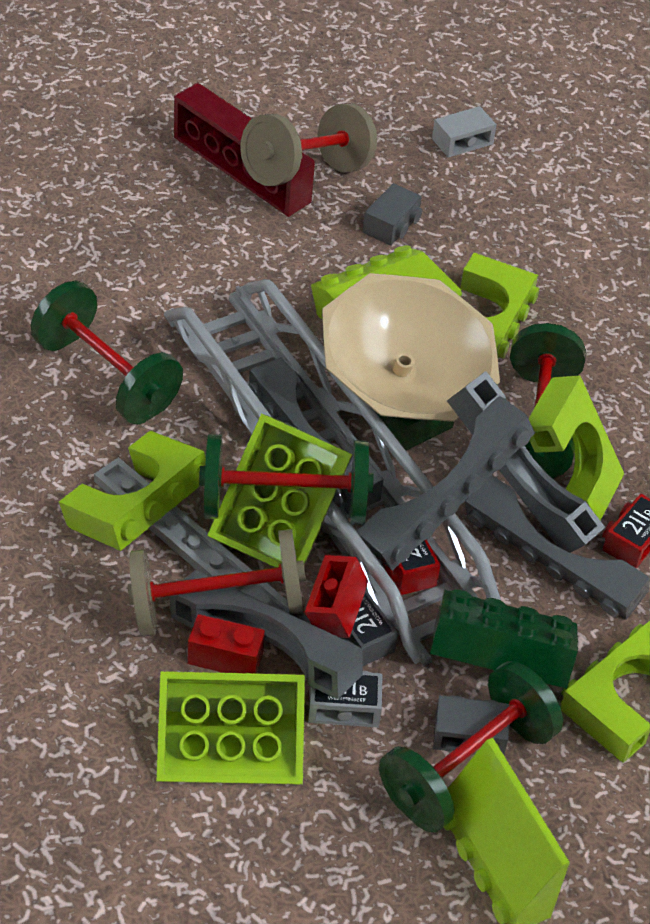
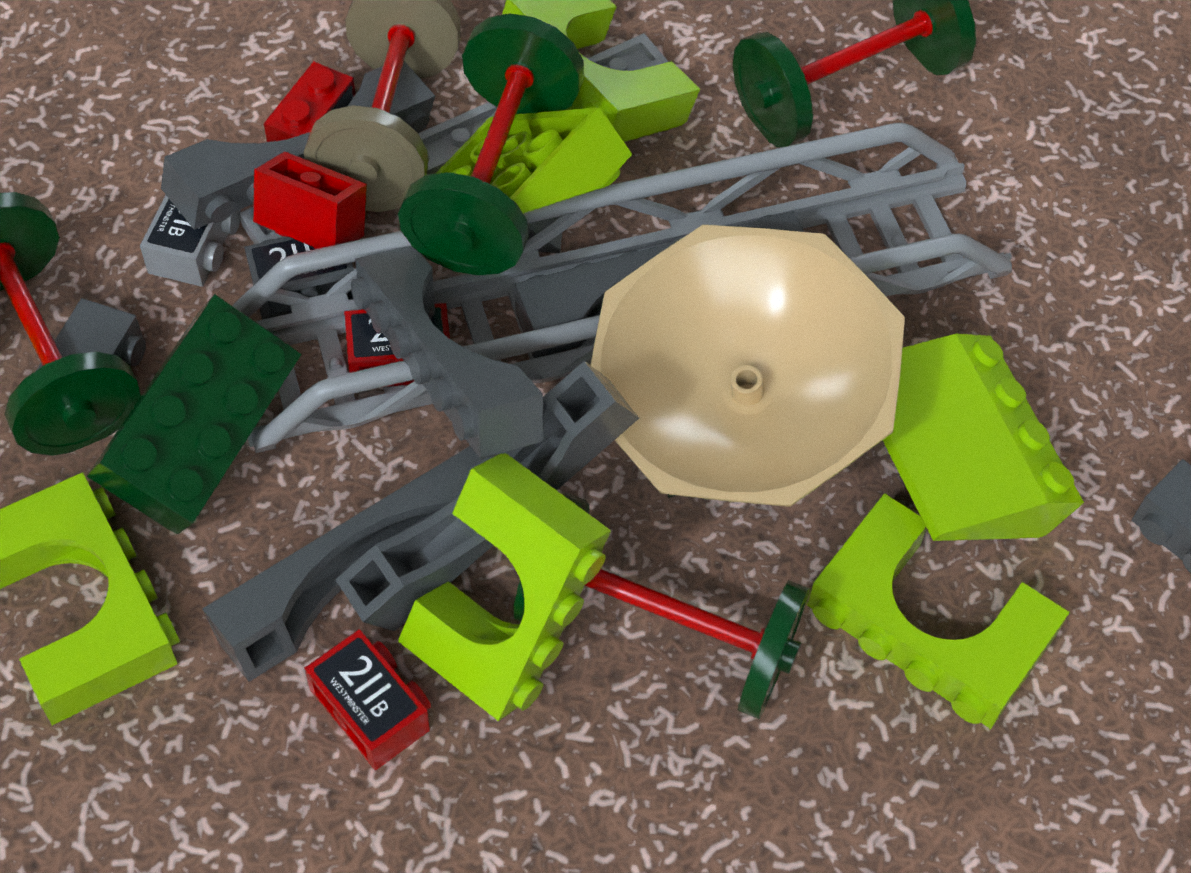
camera: 105 degrees right, 10 degrees up
(231, 728) = (195, 89): lime slope -> none

